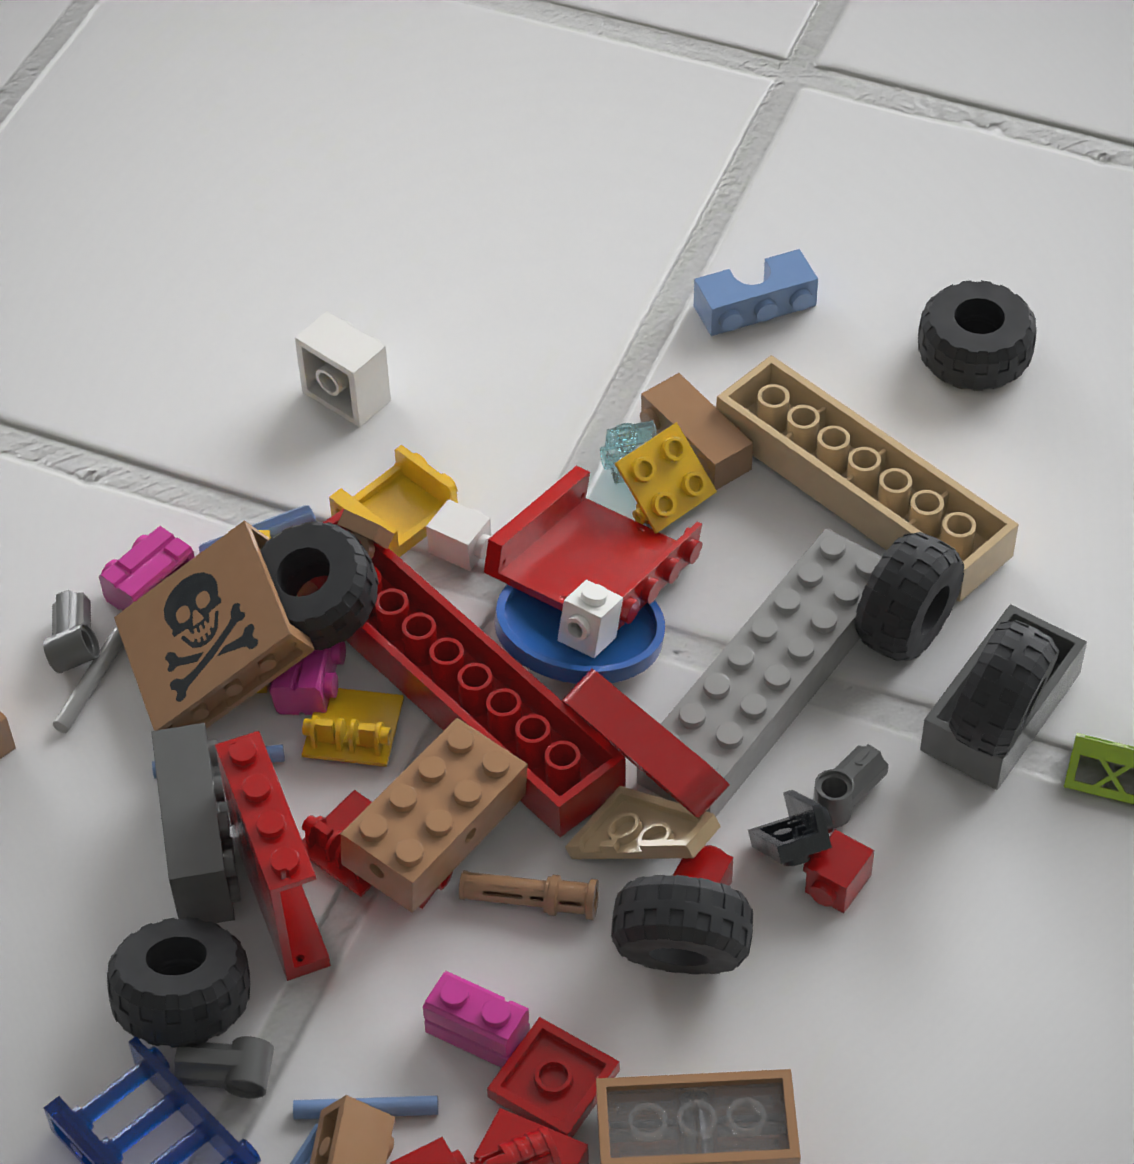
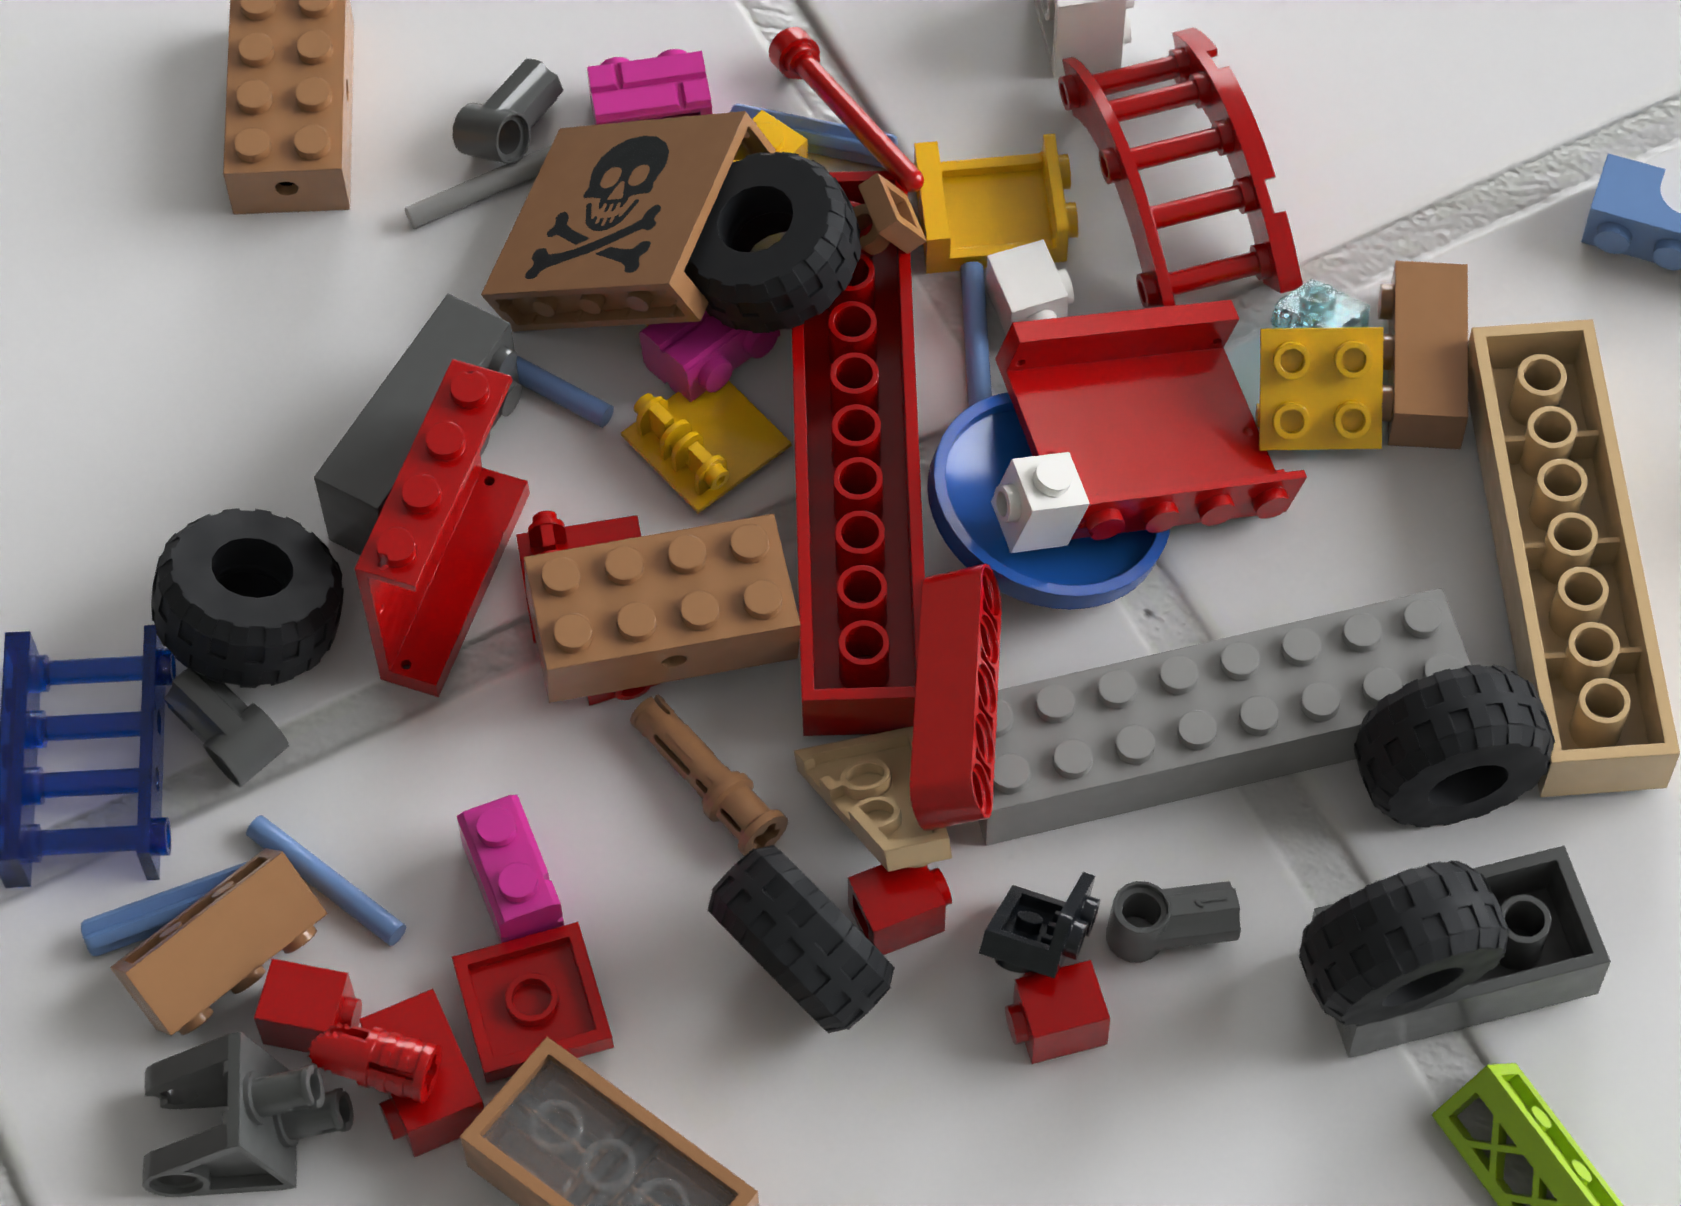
camera: 40 degrees right, 10 degrees up
(211, 499) = (799, 58): none -> red piece
(452, 579) = (975, 332): none -> medium blue bar
(497, 380) = (1231, 134): none -> red fence

